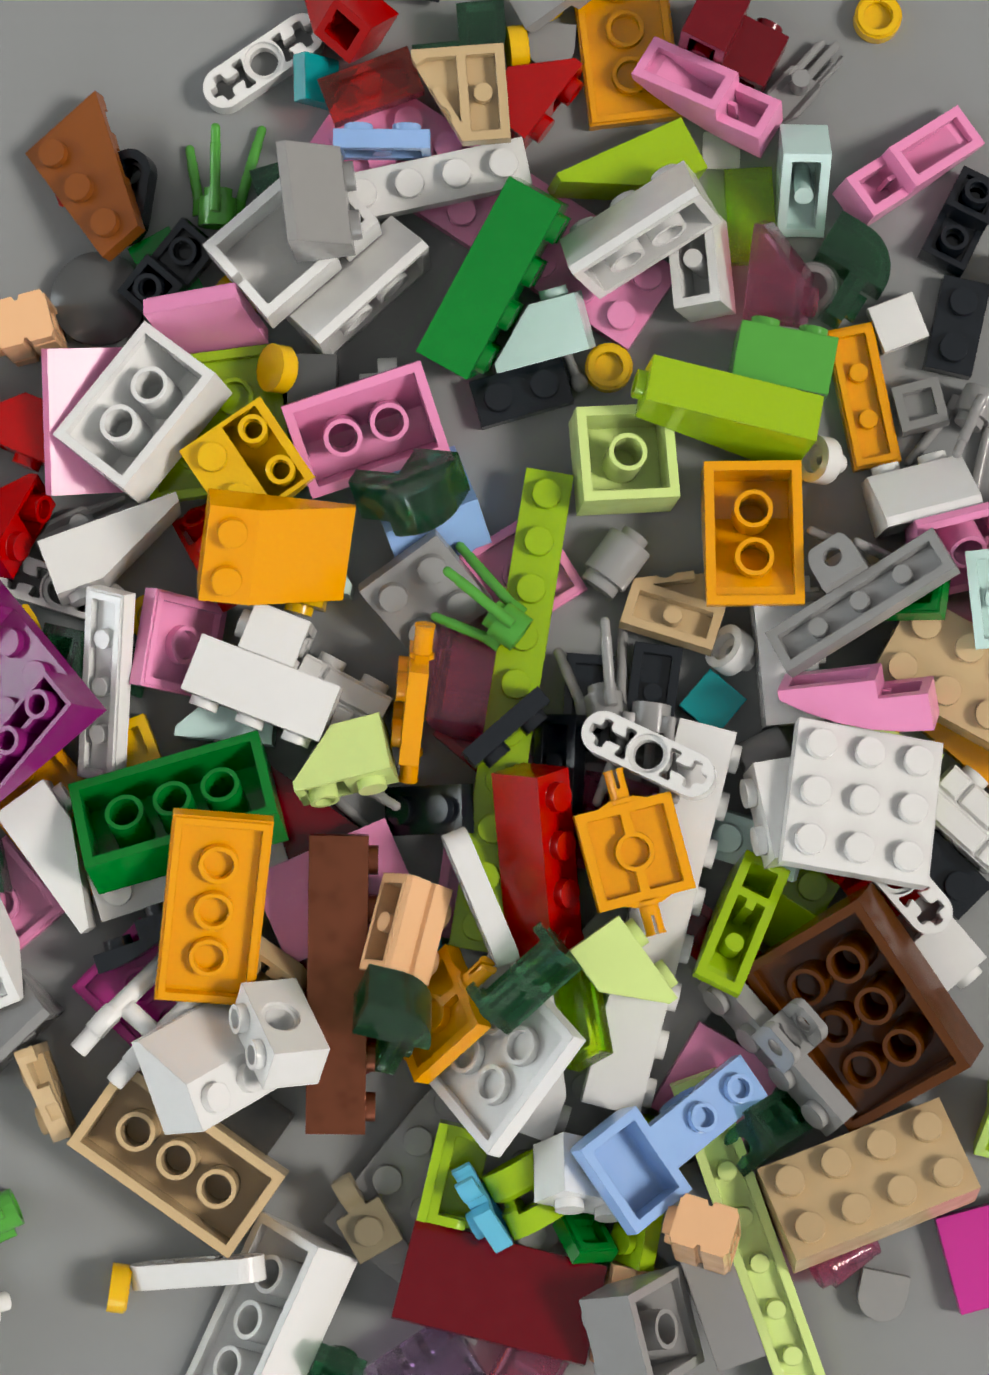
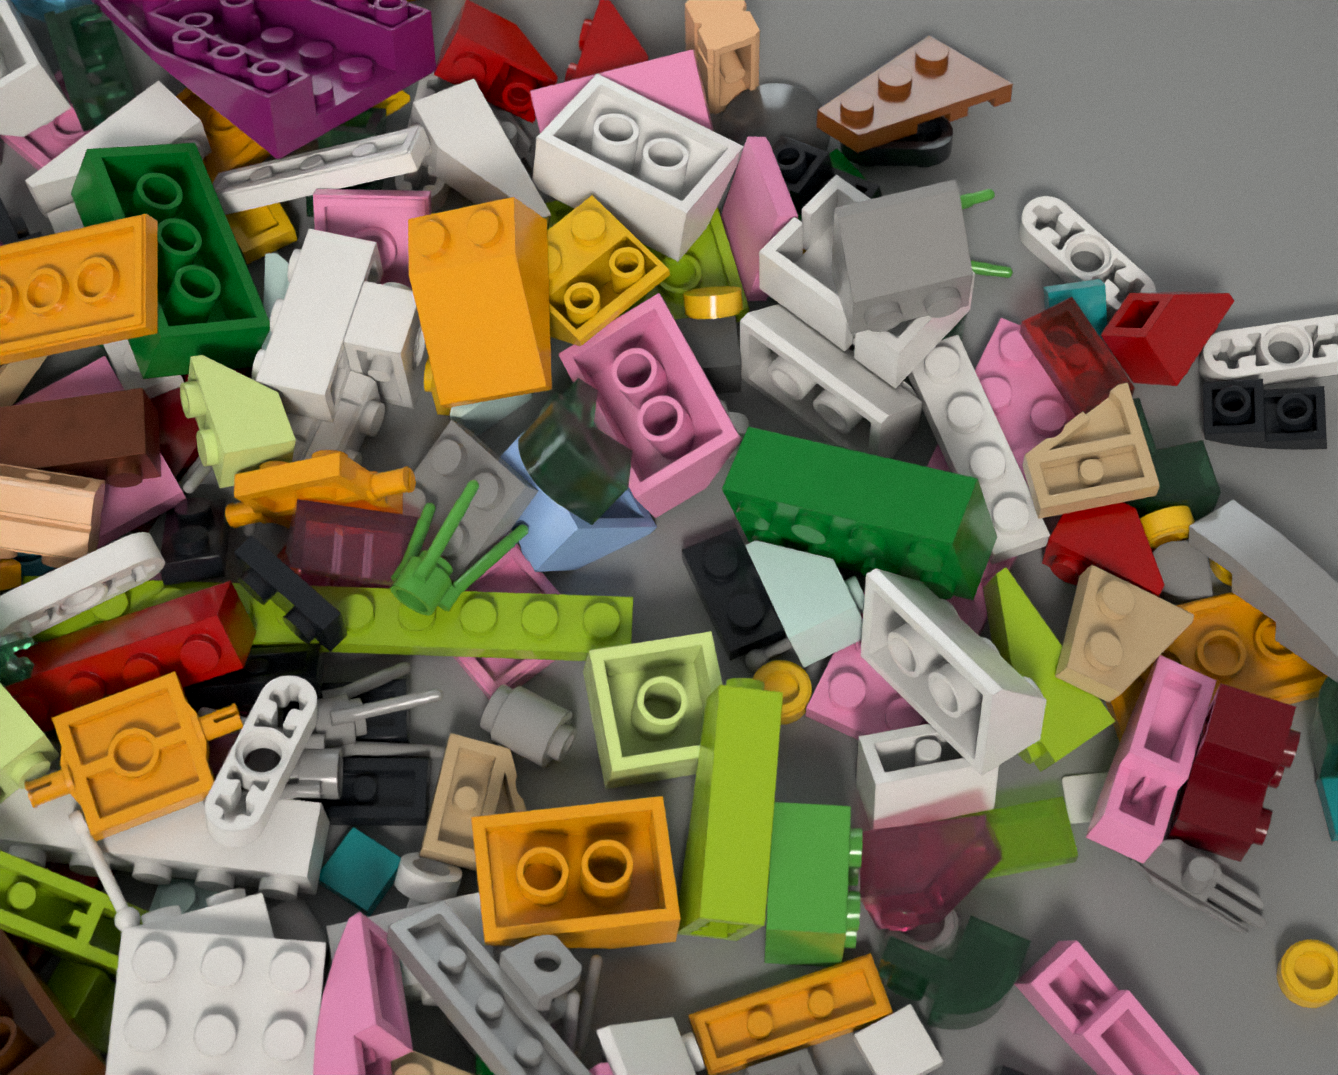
camera: 85 degrees right, 20 degrees down
(401, 142) = (1005, 359): light blue plate -> none
(614, 102) = (1115, 633): none -> tan wing
(753, 868) = (125, 915): none -> white hinge
(802, 179) = (1069, 892): light aqua slope -> none
(823, 461) = (694, 966): white tile -> none

